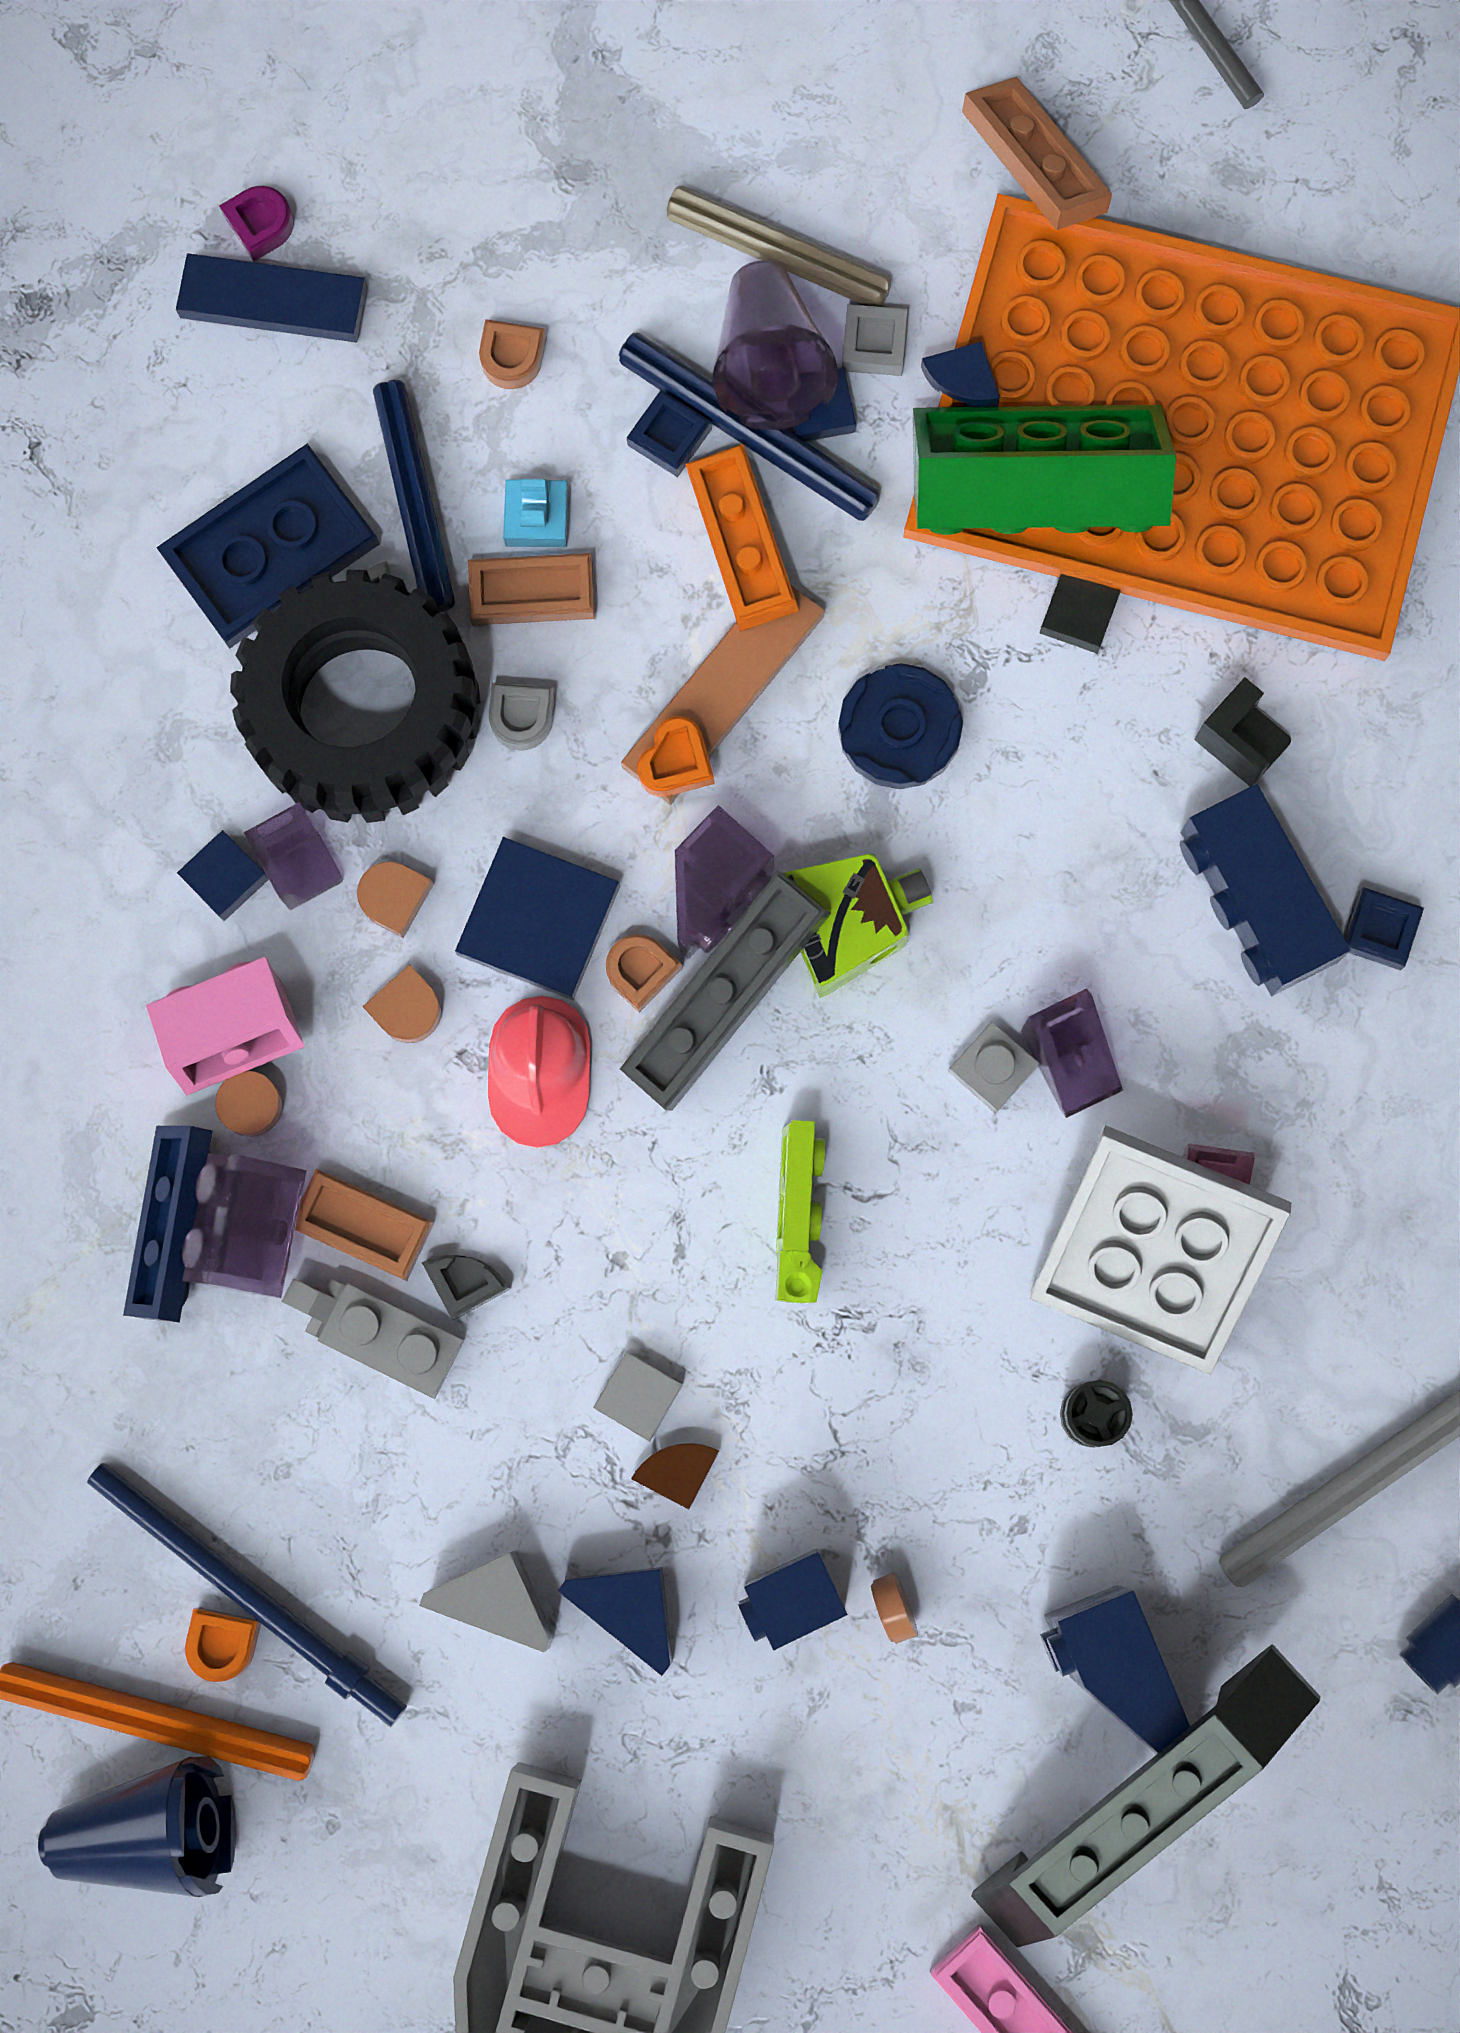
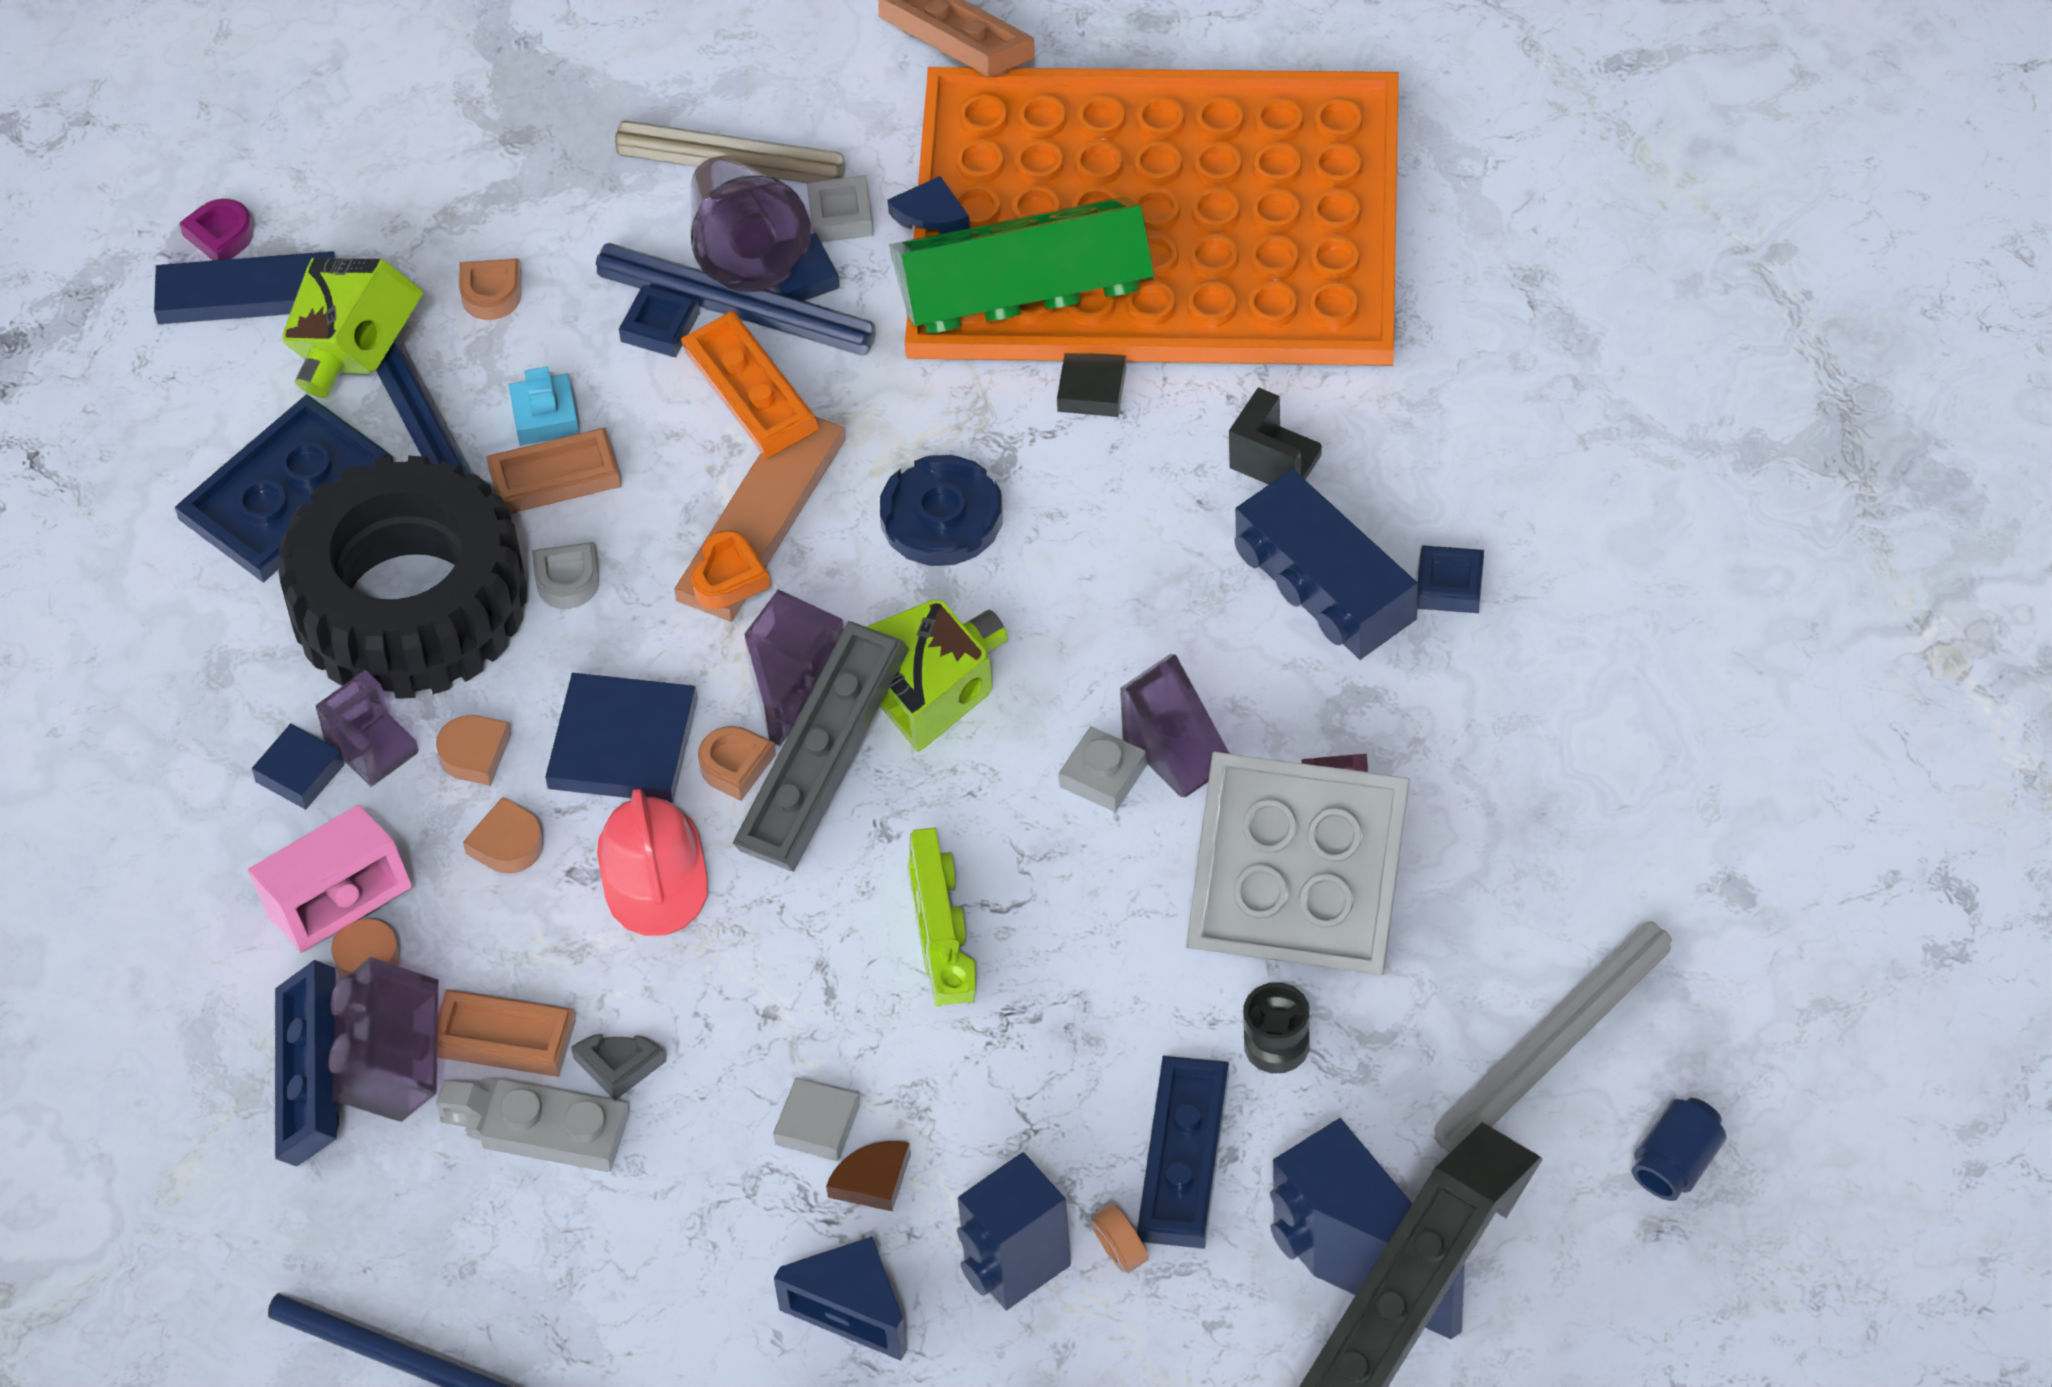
camera: 15 degrees left, 25 degrees down
(355, 377) = (346, 318): none -> lime torso
(495, 1600) = (709, 1319): light grey slope -> none
(977, 1517) = (1183, 1152): none -> dark blue tile

